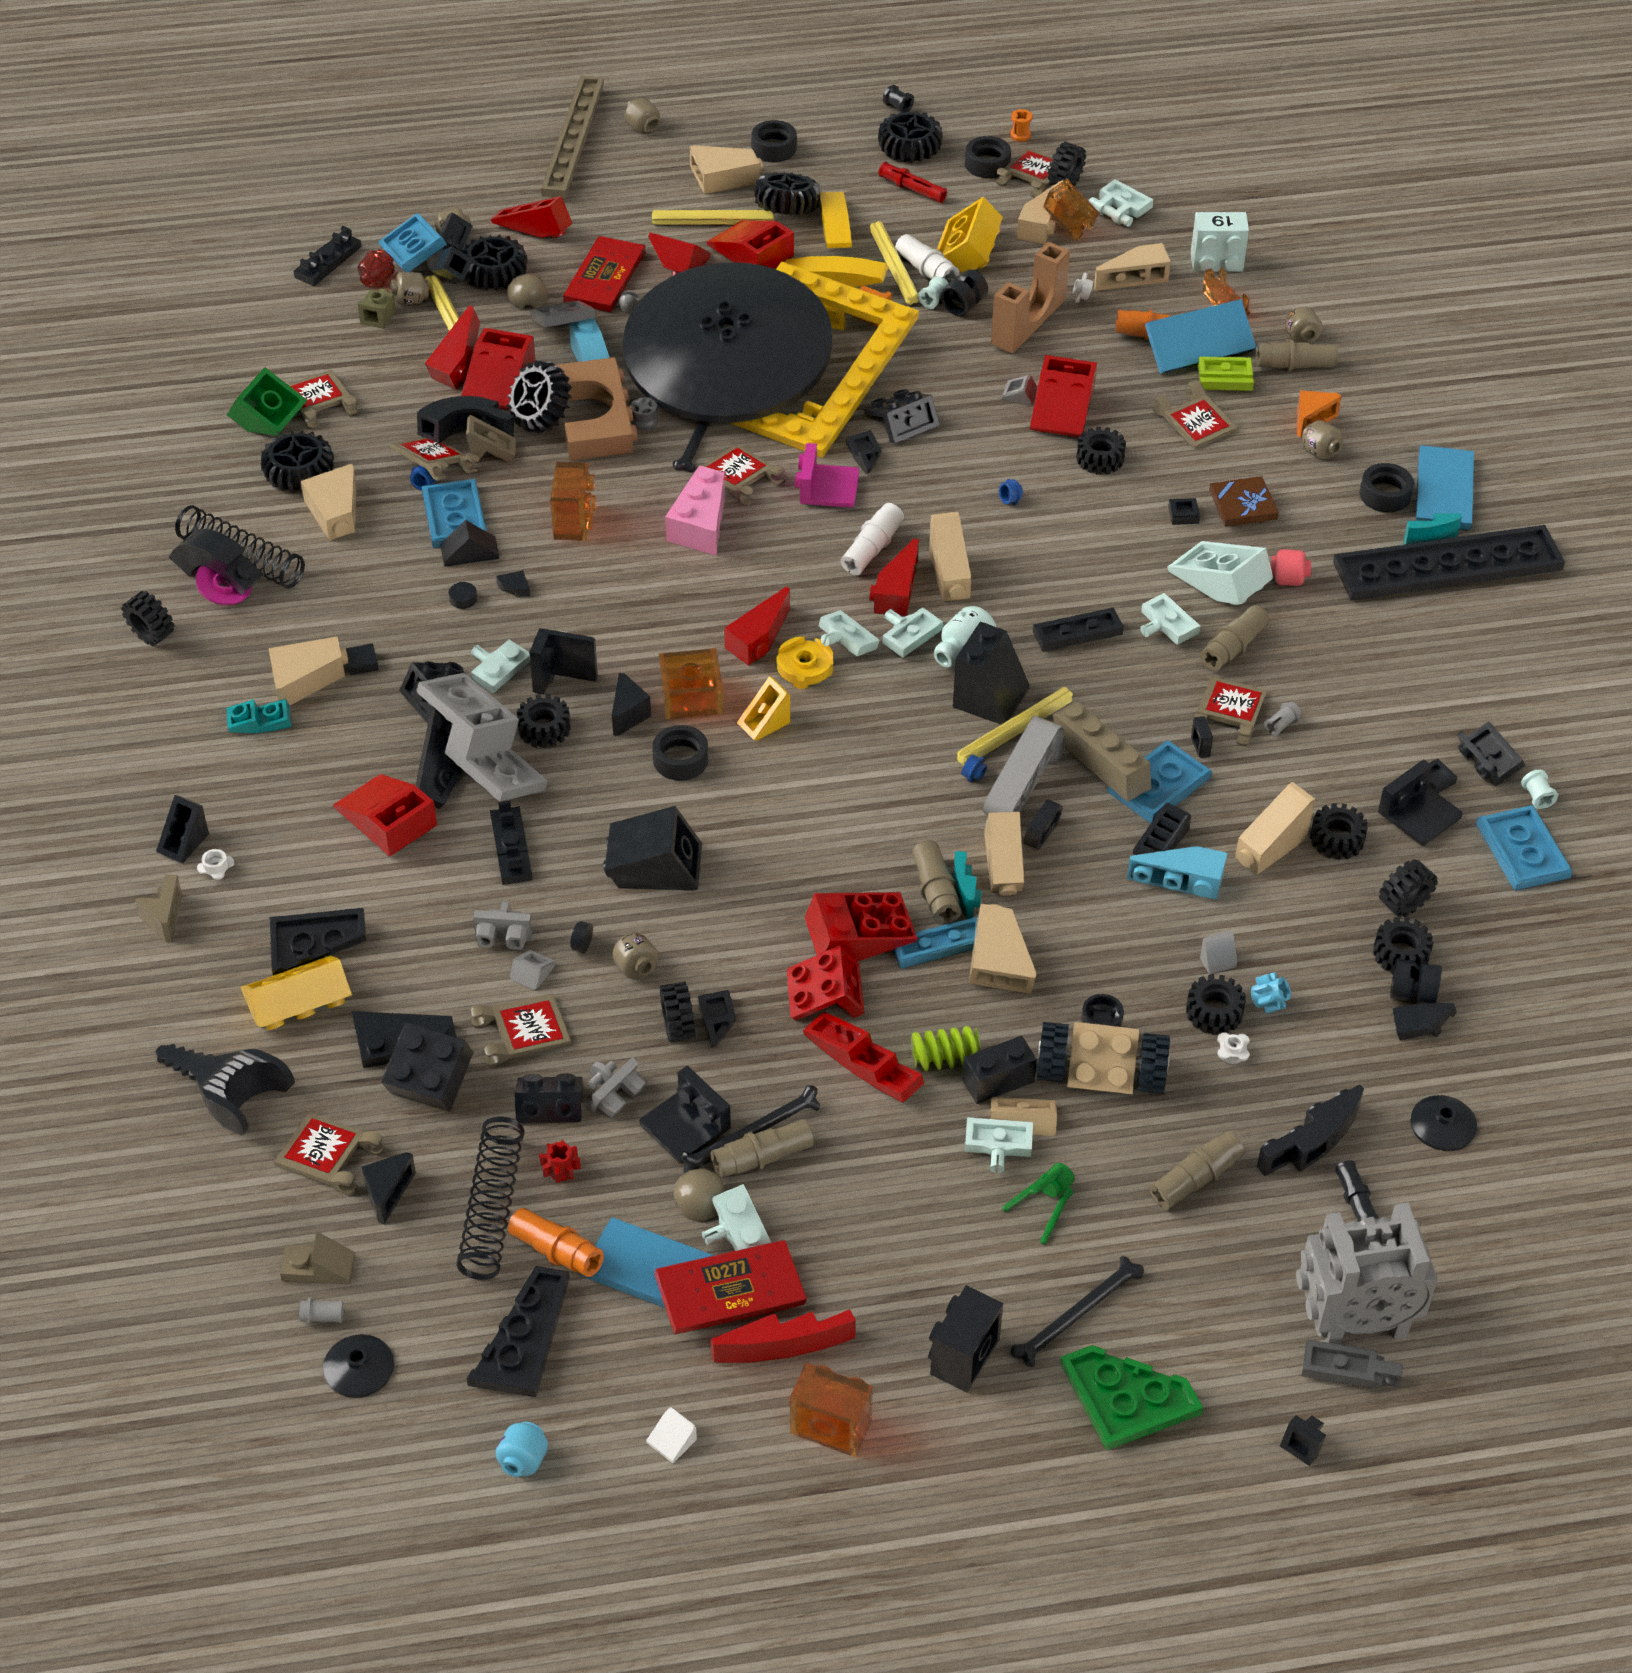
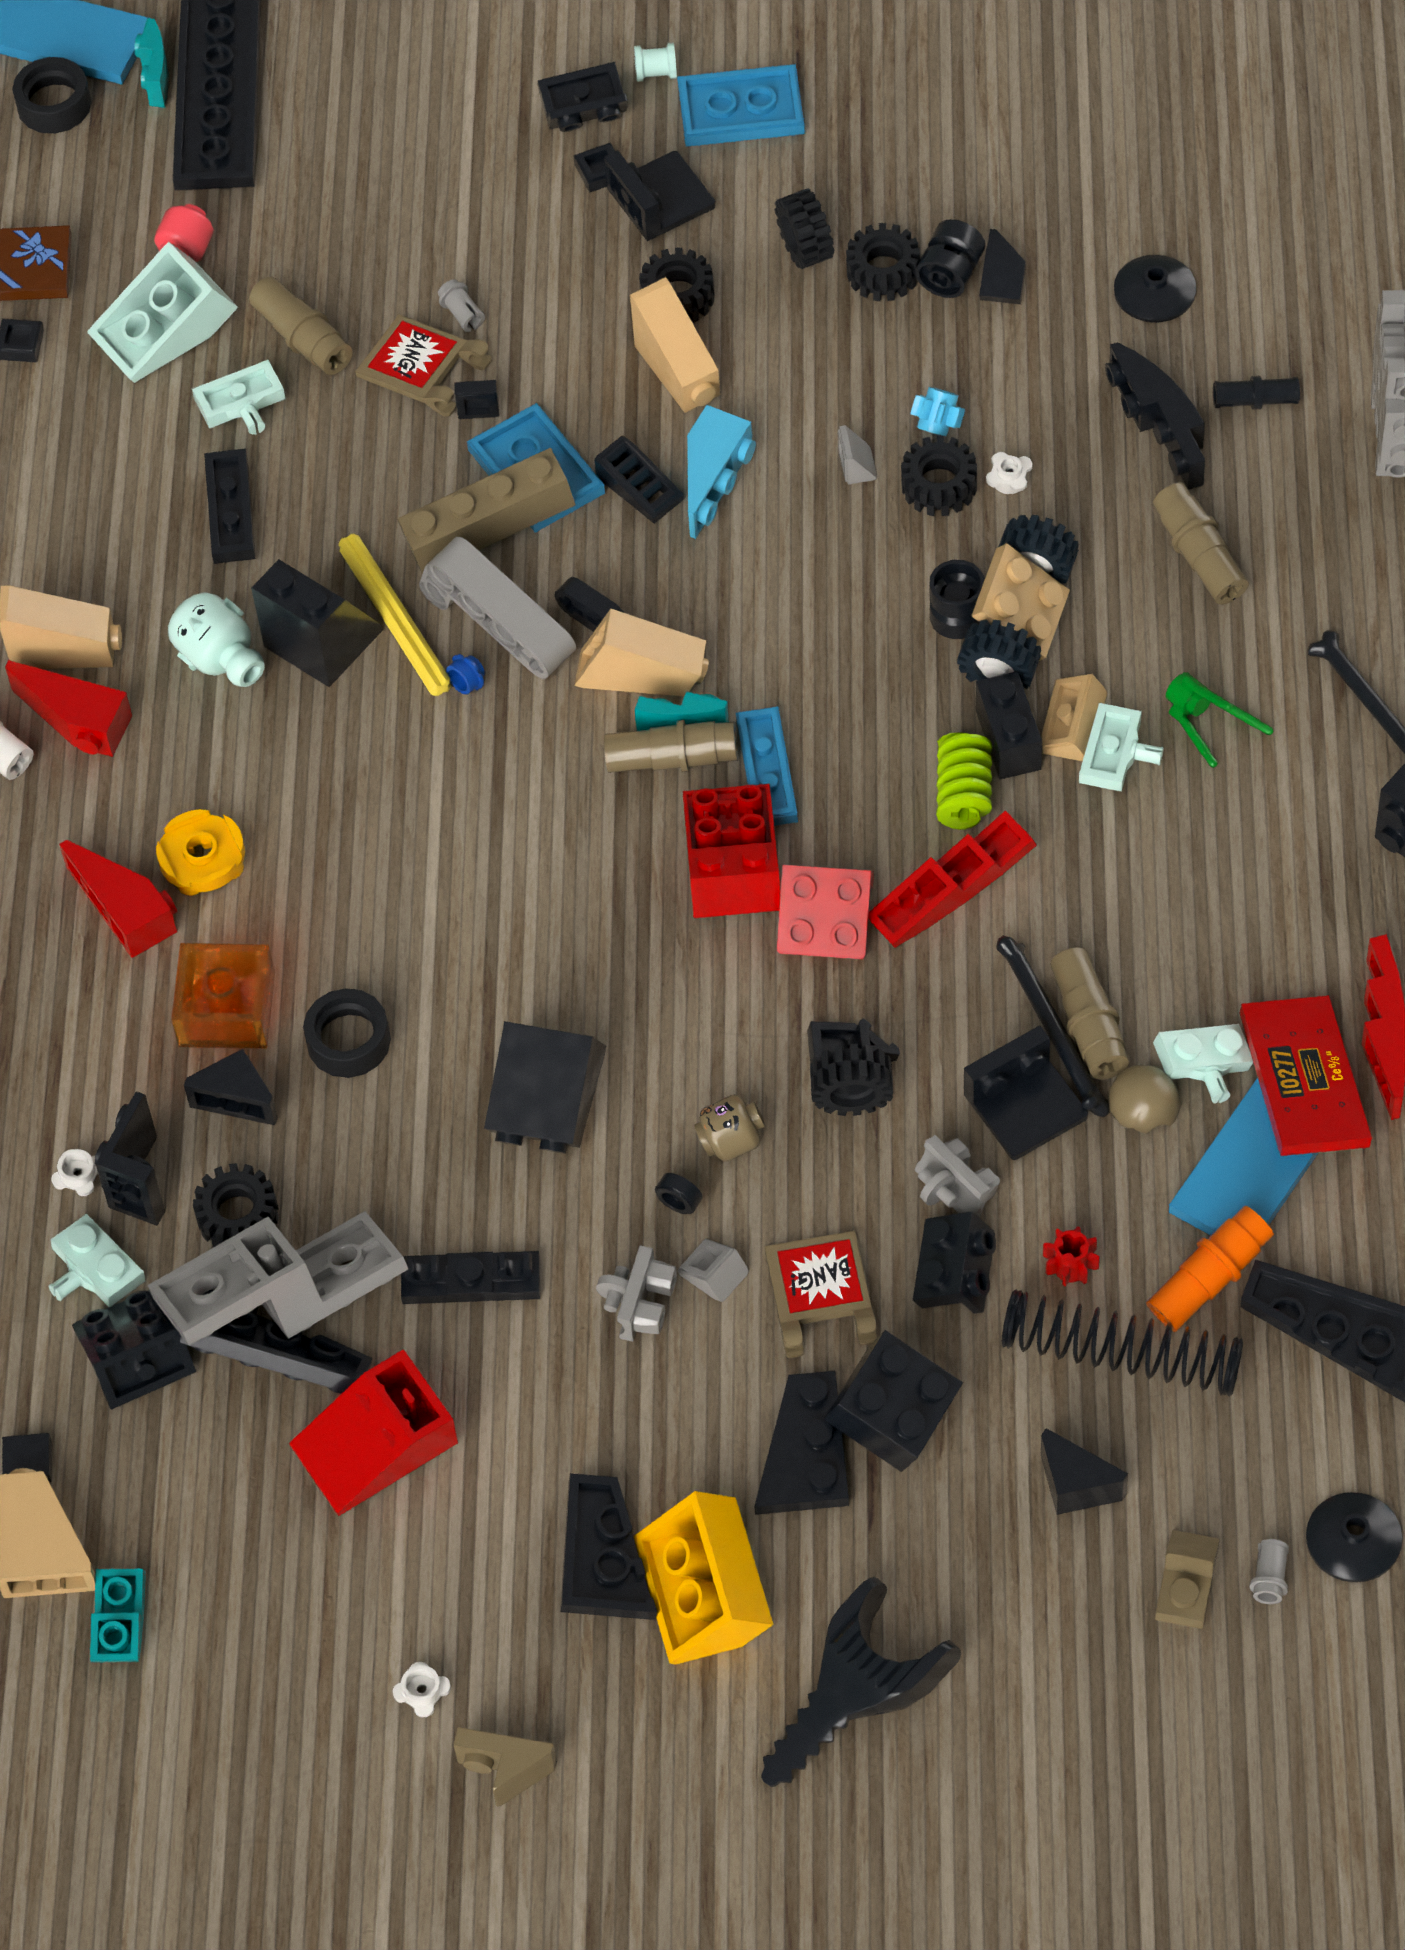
camera: 75 degrees left, 10 degrees up
(183, 829) = (350, 1729): black slope -> none
(324, 1148) = (991, 1561): flag -> none
(767, 711) = (296, 909): yellow slope -> none
(849, 633) = (162, 788): light aqua plate -> none
(910, 631) = (176, 709): light aqua plate -> none
(1000, 952) = (811, 690): tan slope -> none

